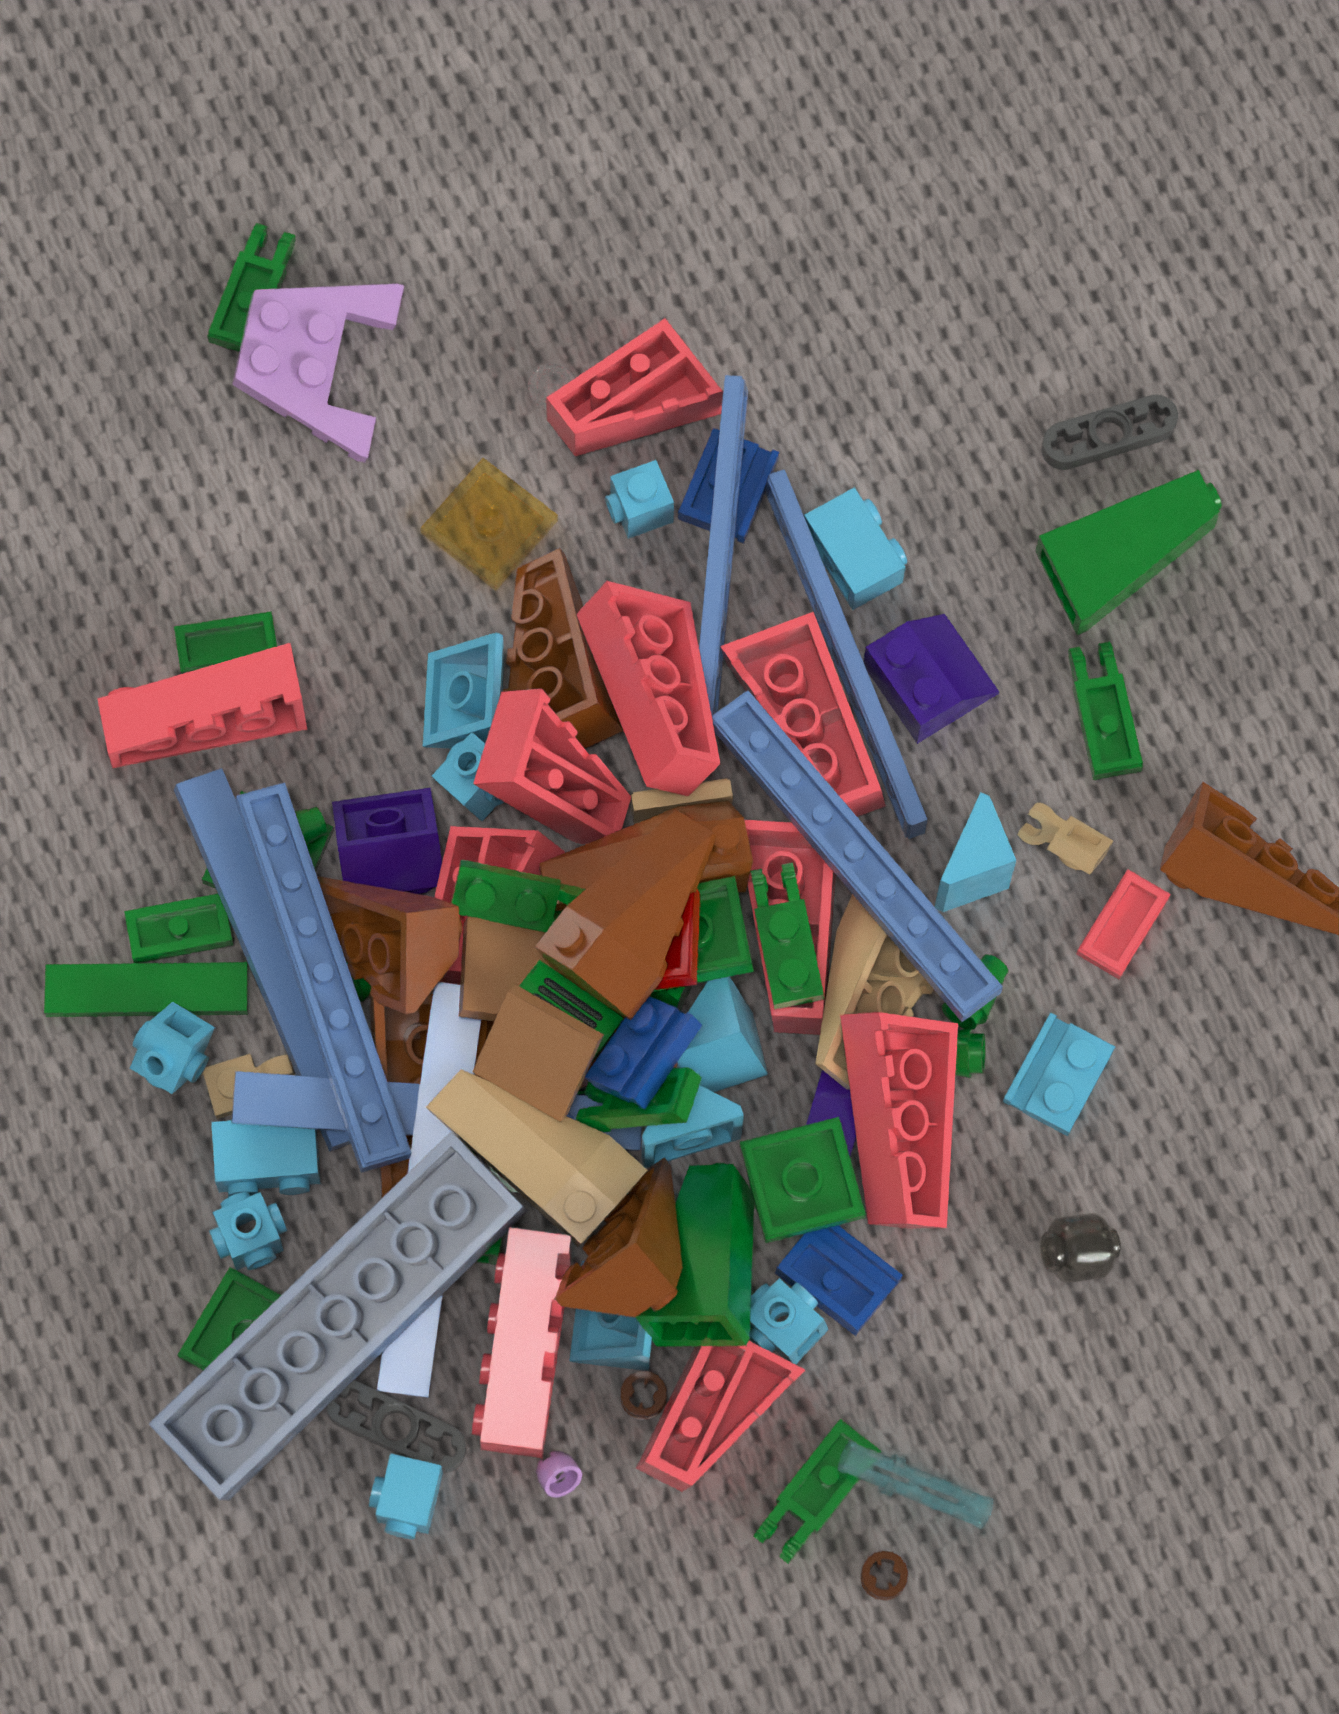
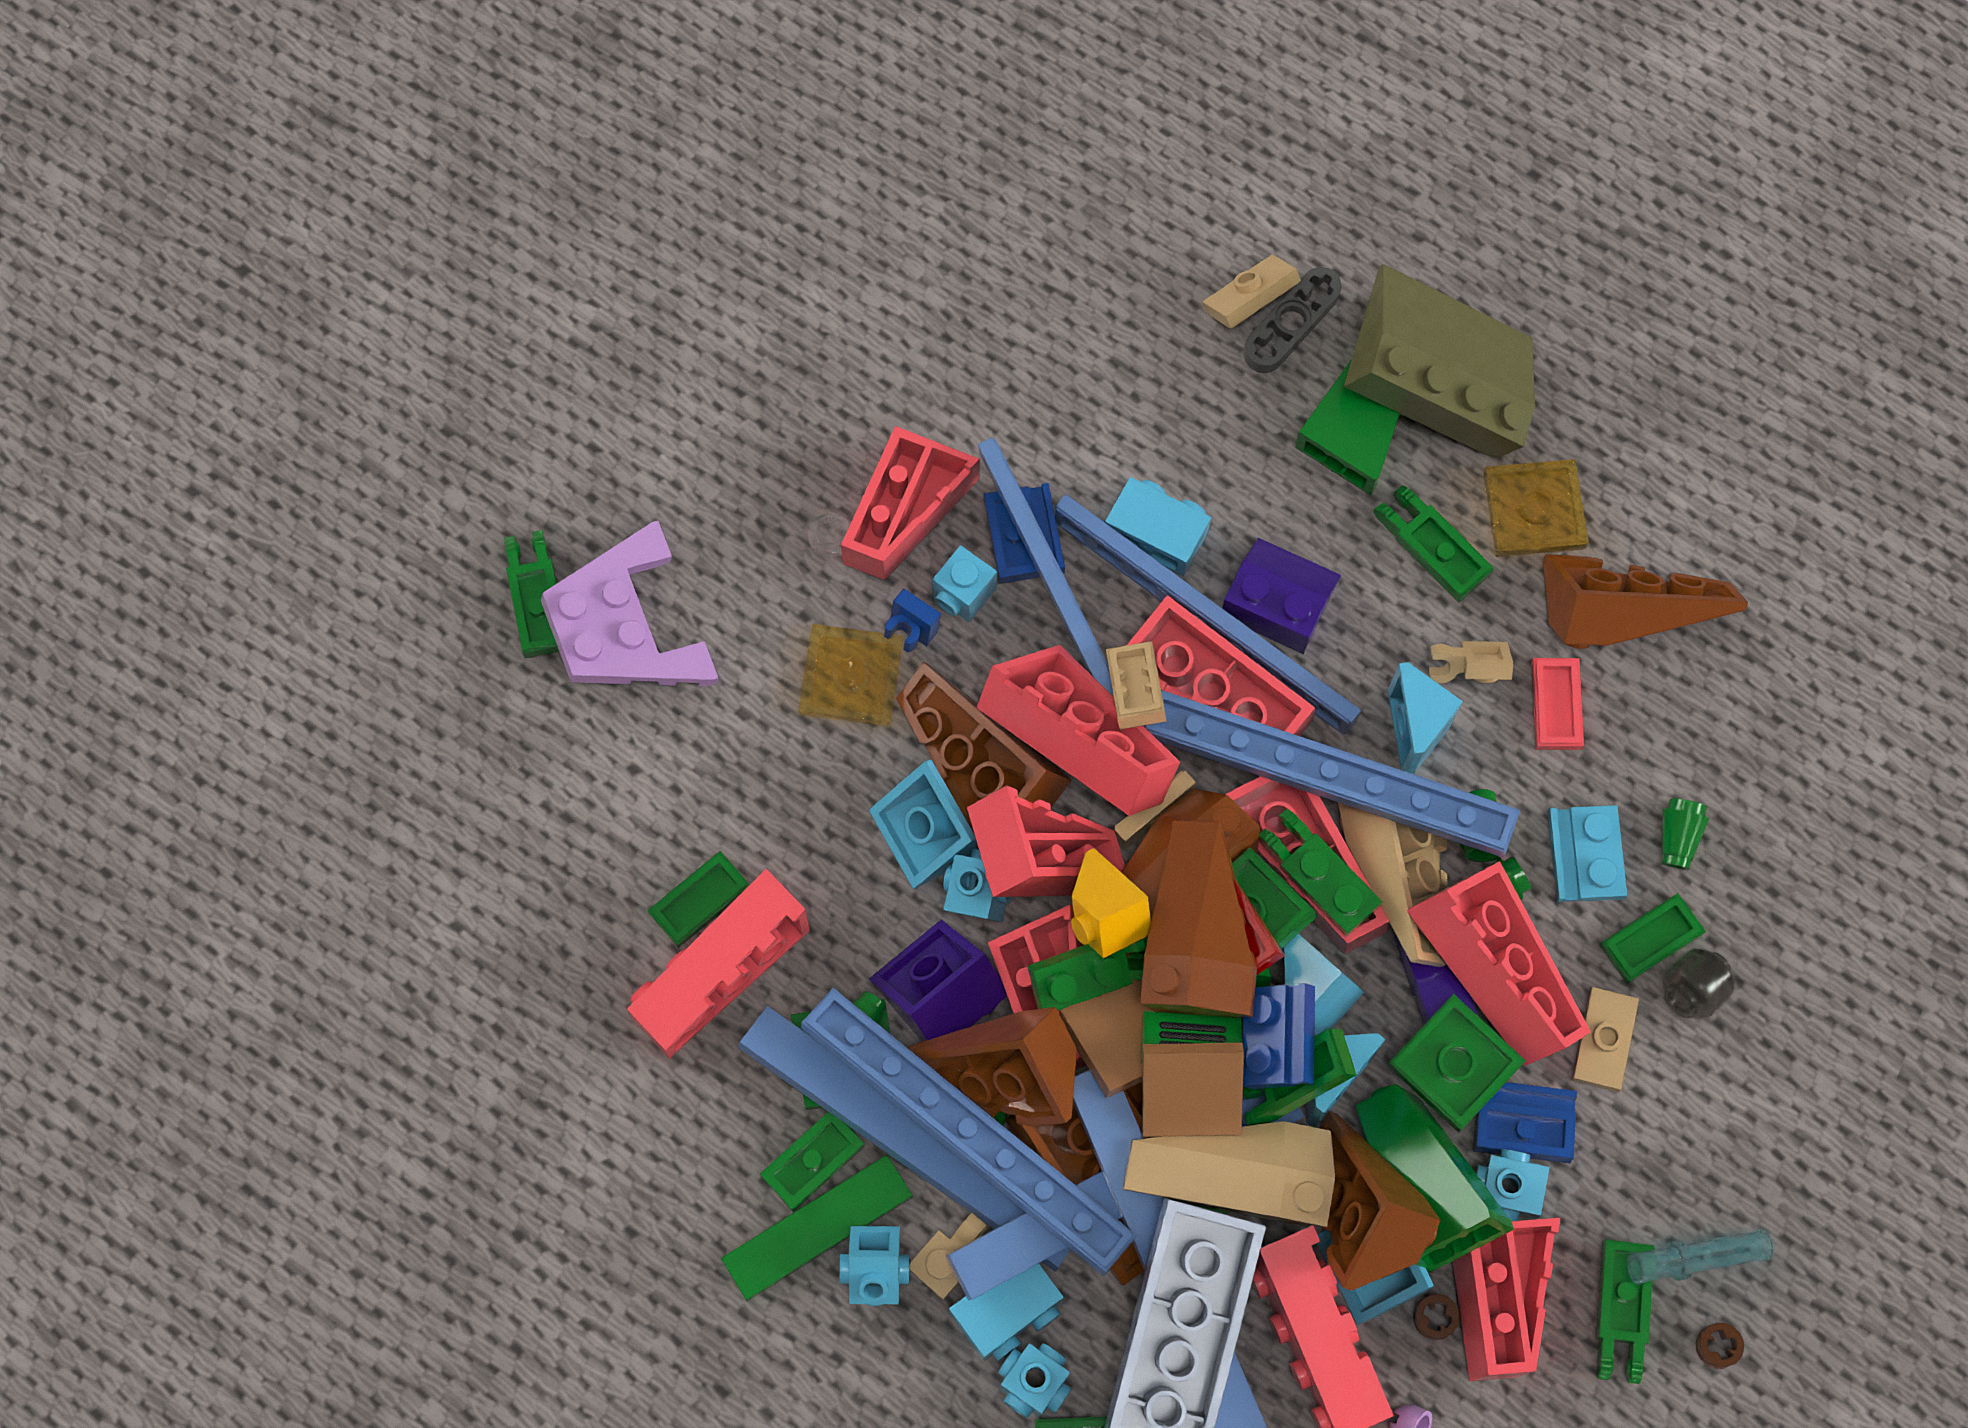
camera: 30 degrees left, 0 degrees up
(563, 848) = (1108, 907): none -> yellow slope
(576, 503) = (914, 618): none -> blue tile
(727, 673) = (1136, 685): none -> tan plate
(962, 1248) = (1605, 1050): none -> tan plate
(1068, 1185) = (1652, 938): none -> green tile
(1087, 383) = (1251, 291): none -> tan plate
(1159, 1105) = (1682, 832): none -> green cone
(1217, 549) = (1444, 365): none -> olive slope
(1222, 734) = (1535, 507): none -> clear yellow plate

